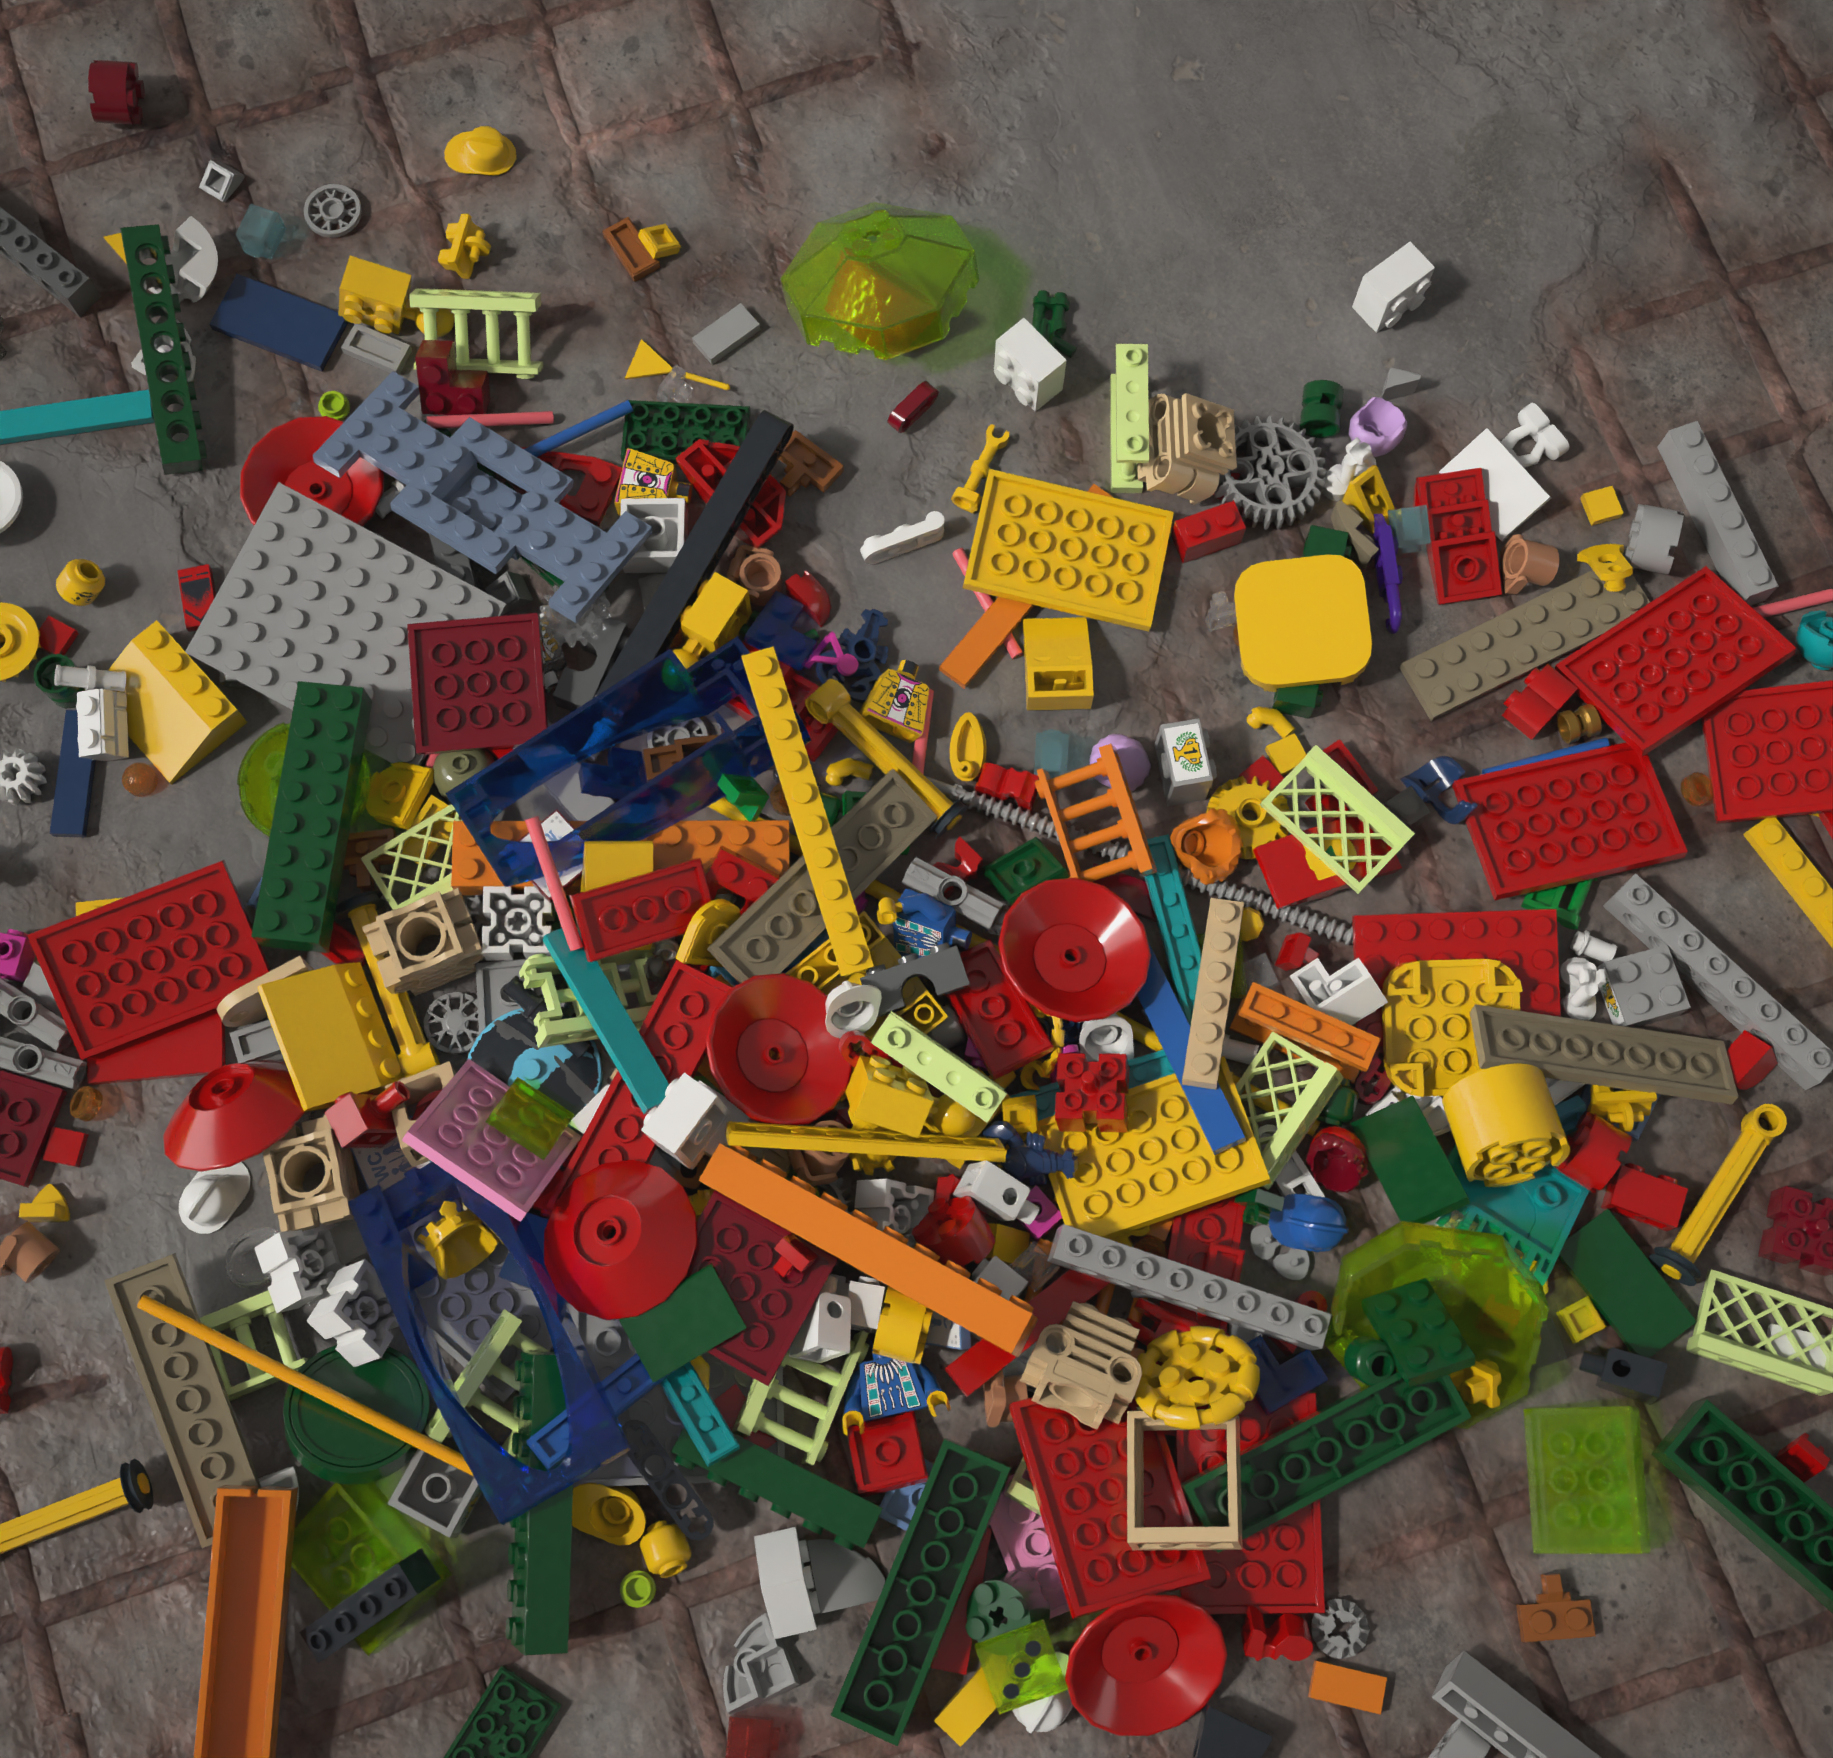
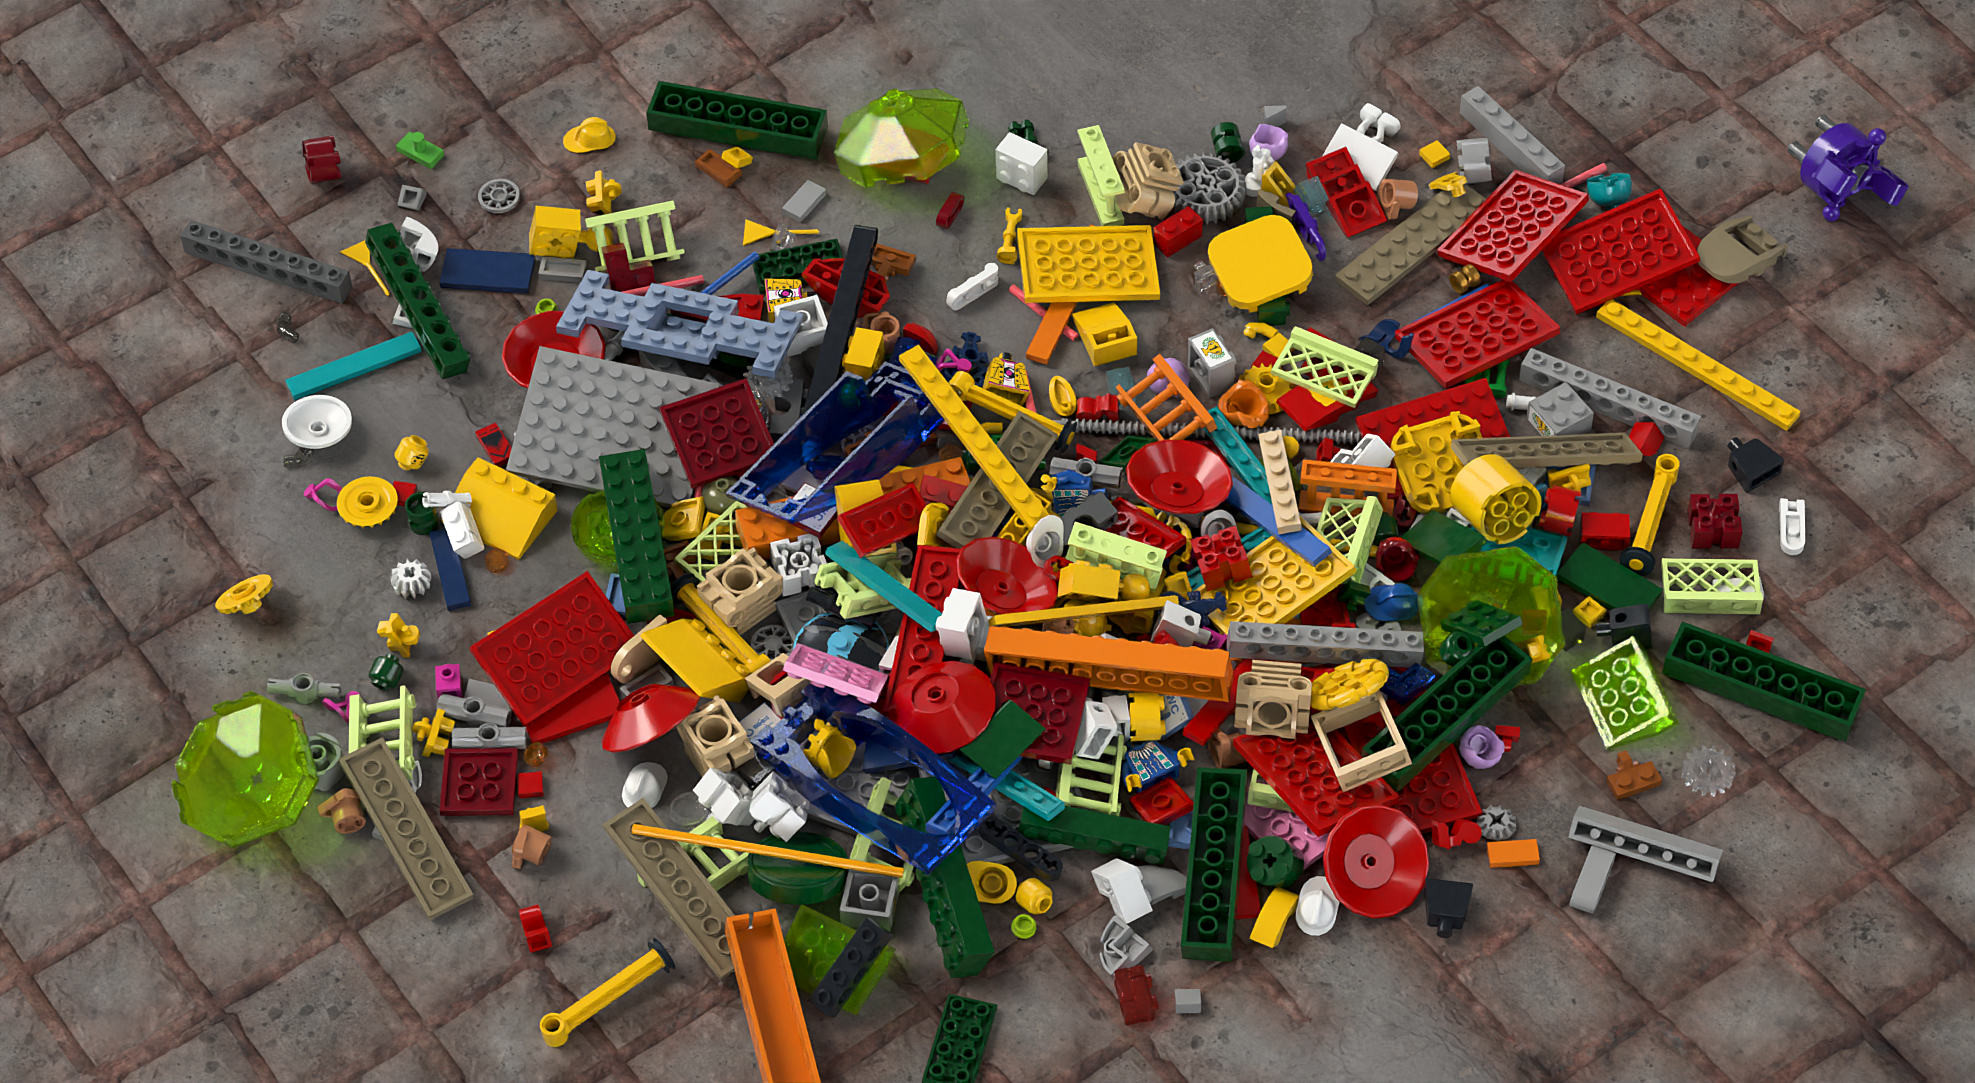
camera: 15 degrees left, 20 degrees down
(255, 110) = (420, 150): none -> bright green tile
(260, 232) = (454, 219): clear light blue brick -> none
(367, 1117) = (742, 693): red brick -> none
(530, 1118) = (853, 662): clear neon green tile -> none
(554, 883) = (824, 511): coral piece -> none
(657, 969) = (903, 564): clear smoke arm -> none
(676, 185) = (737, 120): none -> dark green brick
(744, 794) = (930, 446): green bracket -> none
(794, 1255) = (1061, 678): red tile -> none
(1021, 1666) = (1295, 878): clear neon green tile -> none
(1357, 1511) = (1481, 747): none -> lavender hair
(1393, 287) = (1249, 60): white brick -> none
(1399, 1494) = (1508, 735): none -> red tile
(1539, 701) = (1433, 273): red brick -> none
(1581, 984) = (1517, 419): white piece -> none
(1674, 1632) = (1696, 767): none -> clear gear
(1697, 789) = (1556, 297): clear orange tile -> none

